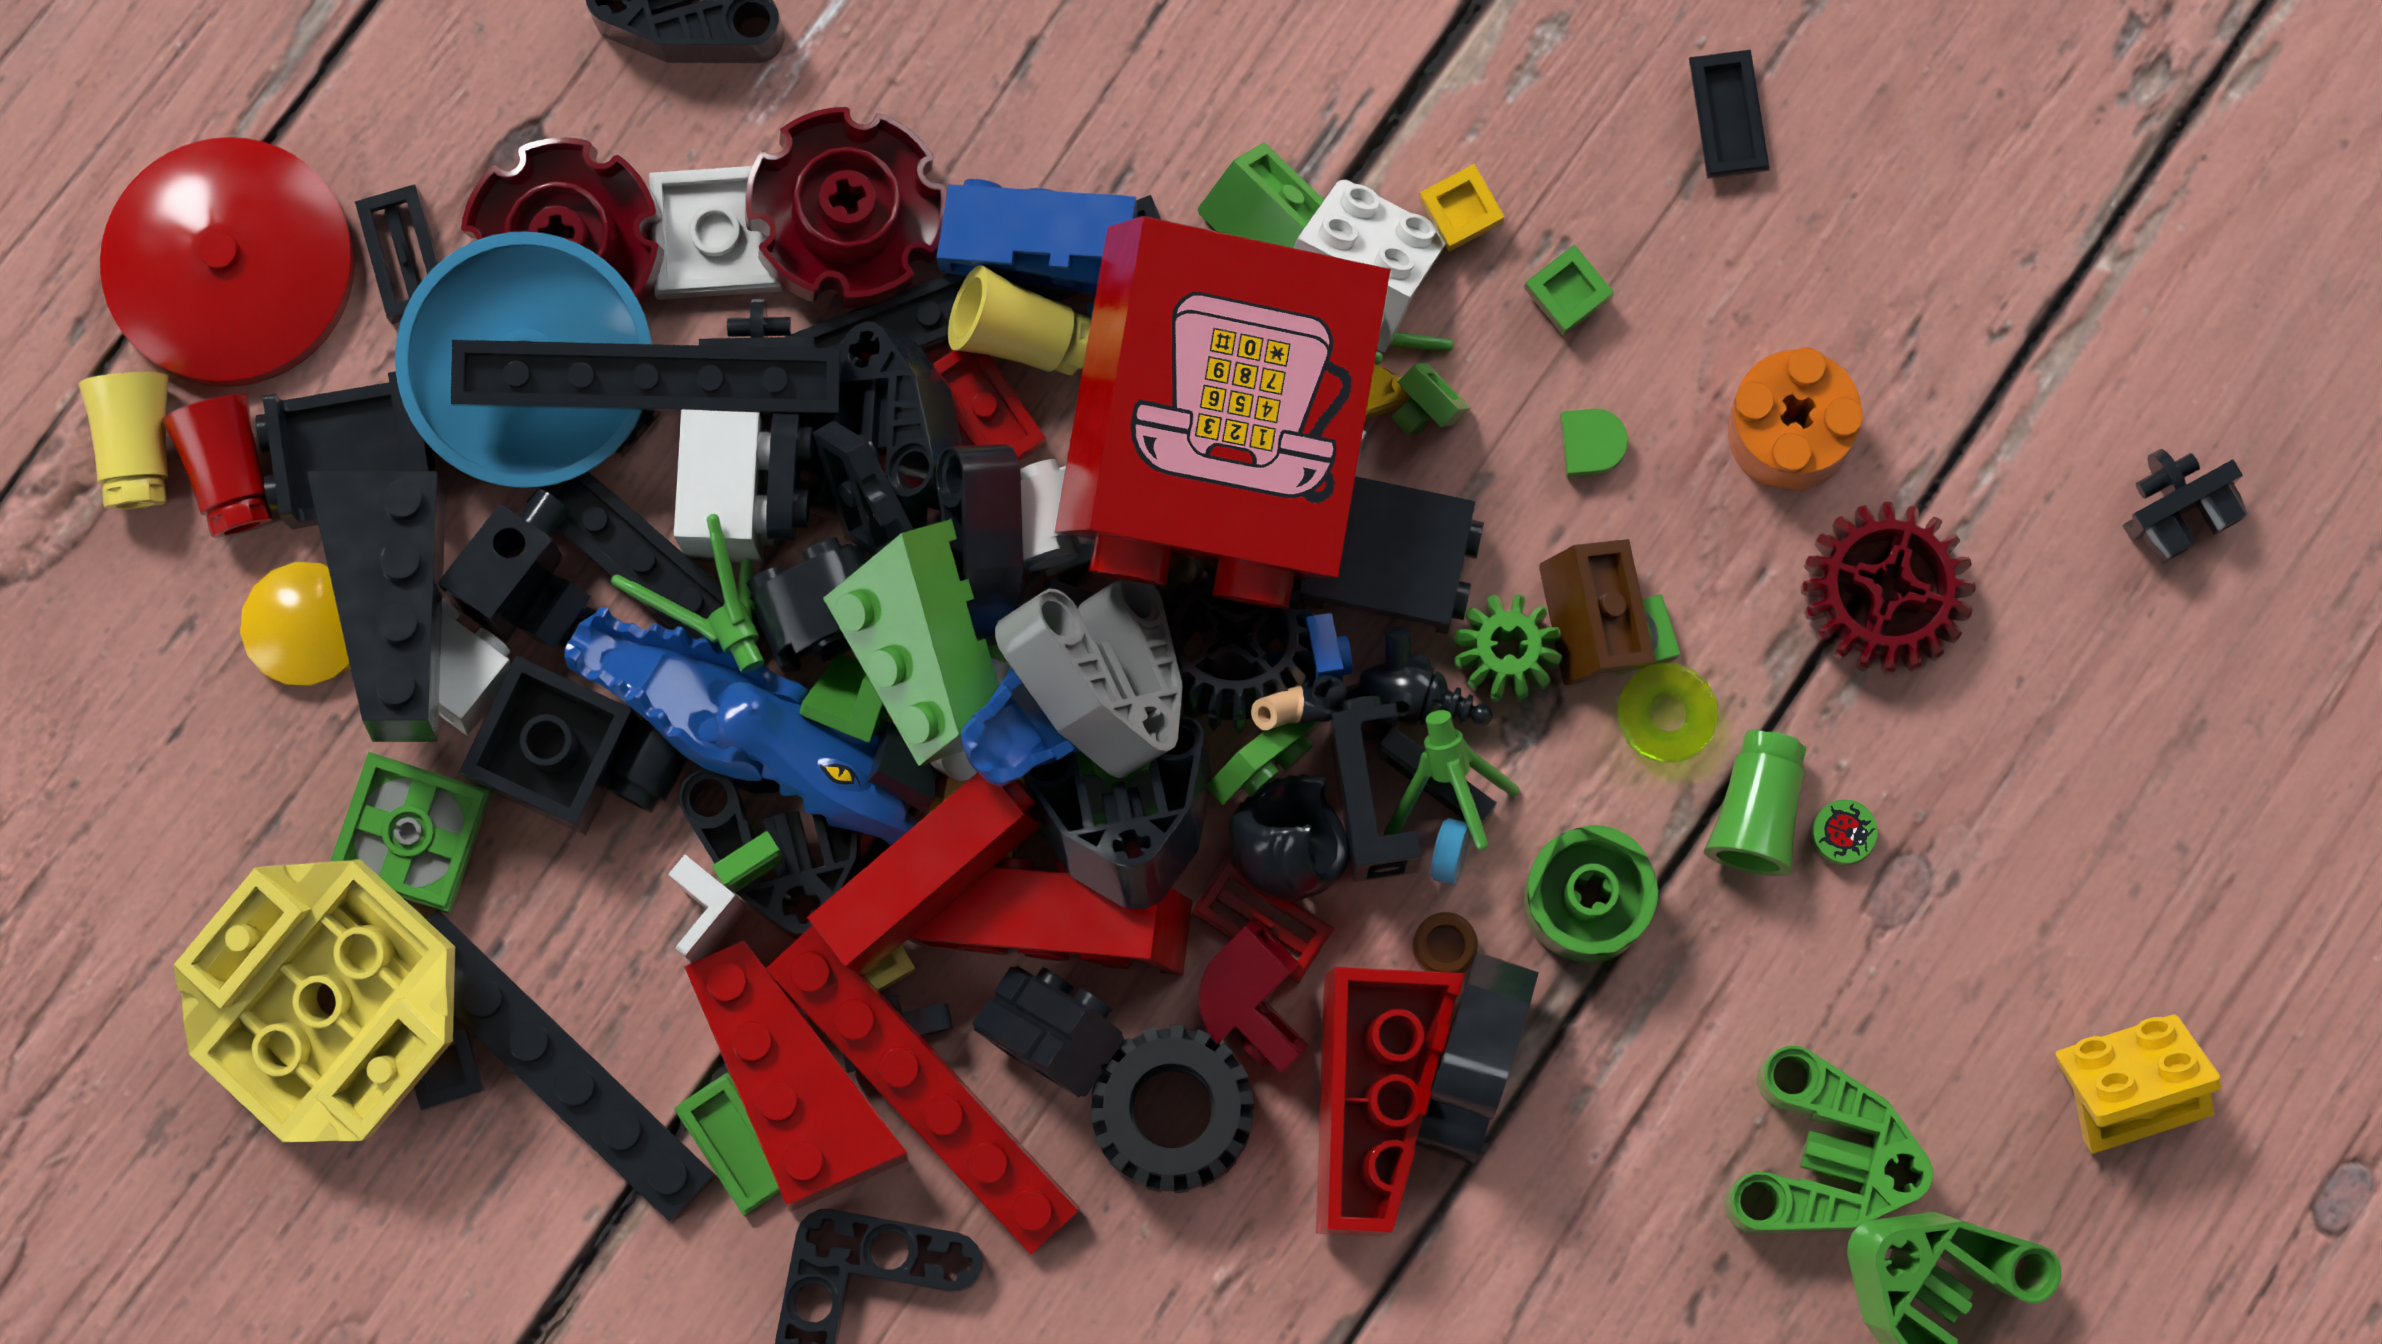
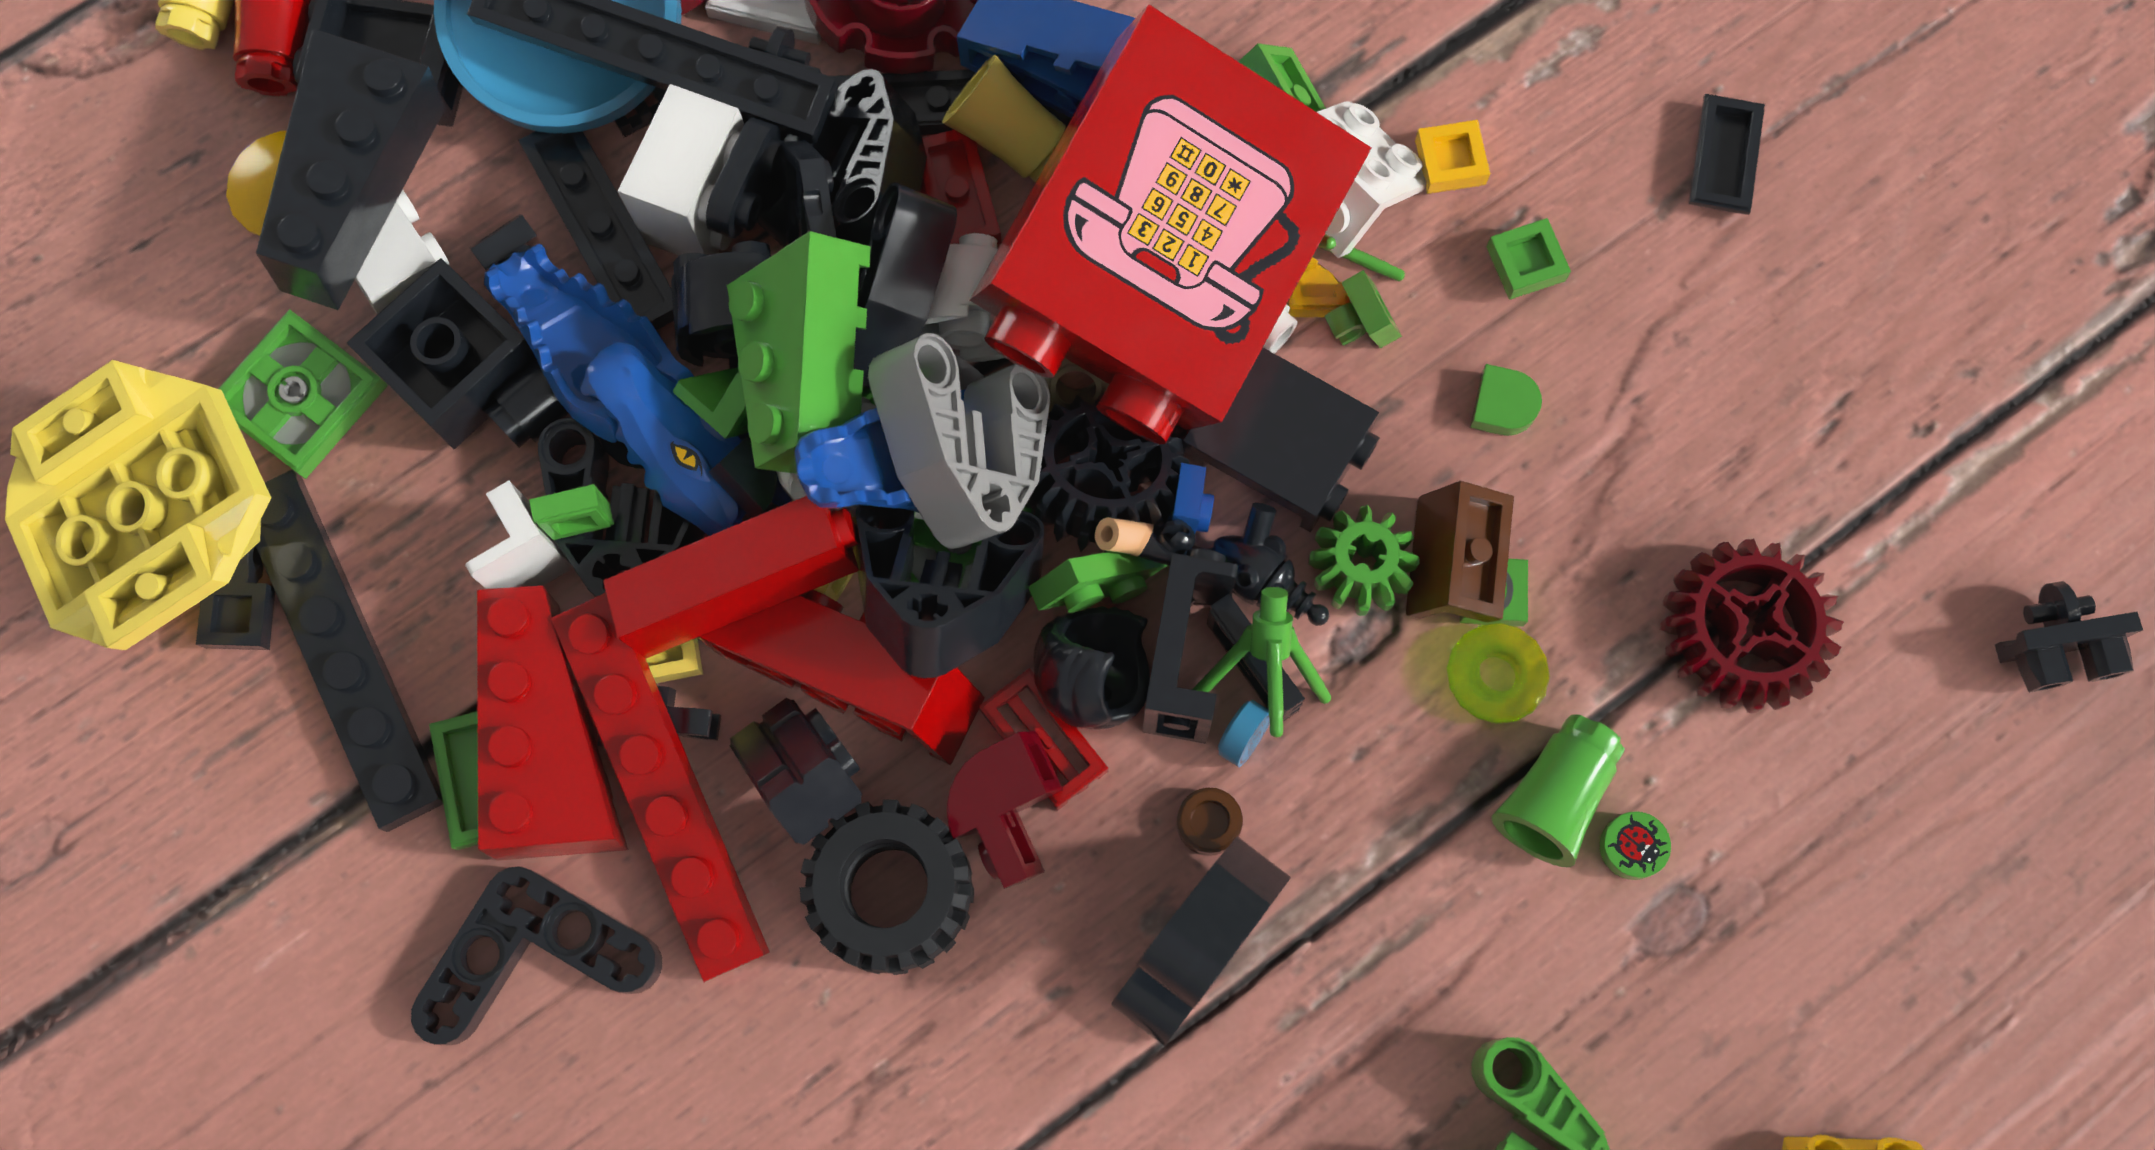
camera: 20 degrees right, 5 degrees down
(500, 588) = (471, 182): black torso -> none
(728, 625) = (644, 293): bright green plant -> none
(1375, 1087) = (1100, 919): red wedge -> none
(1626, 885) = (1405, 820): bright green brick -> none
(1801, 384) = (1708, 438): orange brick -> none

